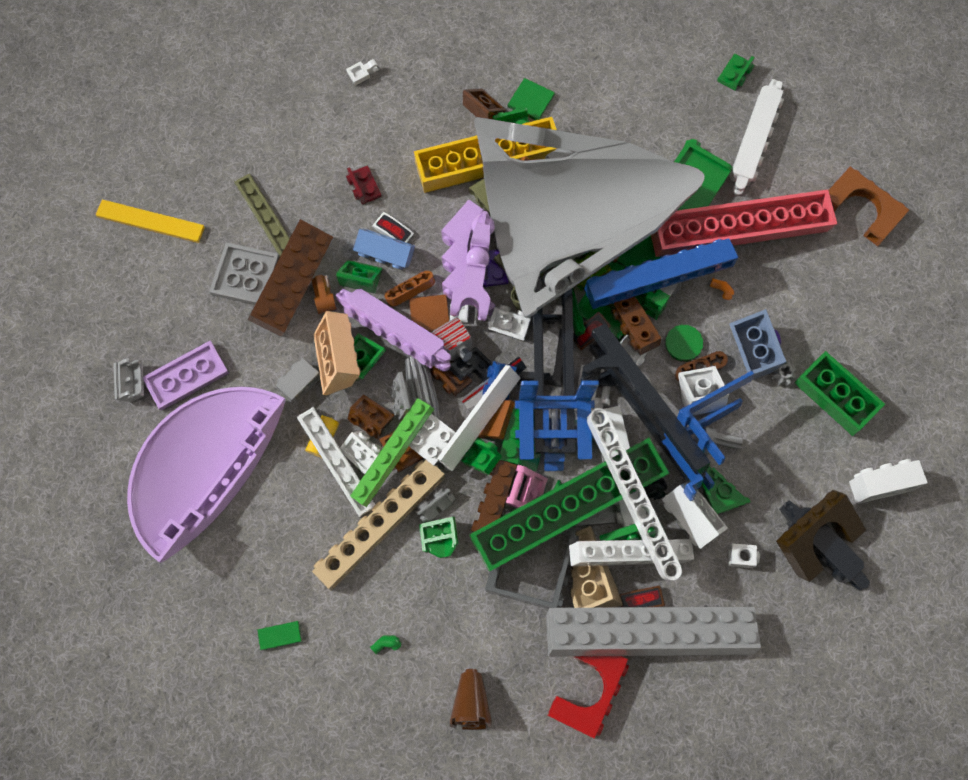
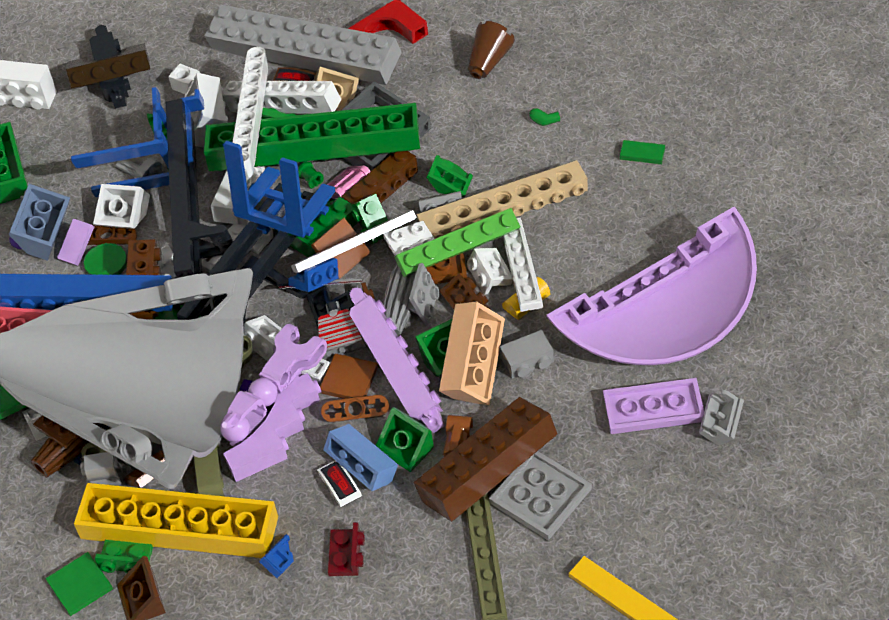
camera: 150 degrees left, 20 degrees down
(405, 162) = (278, 558): none -> blue tile
(718, 345) = (75, 242): none -> lavender tile

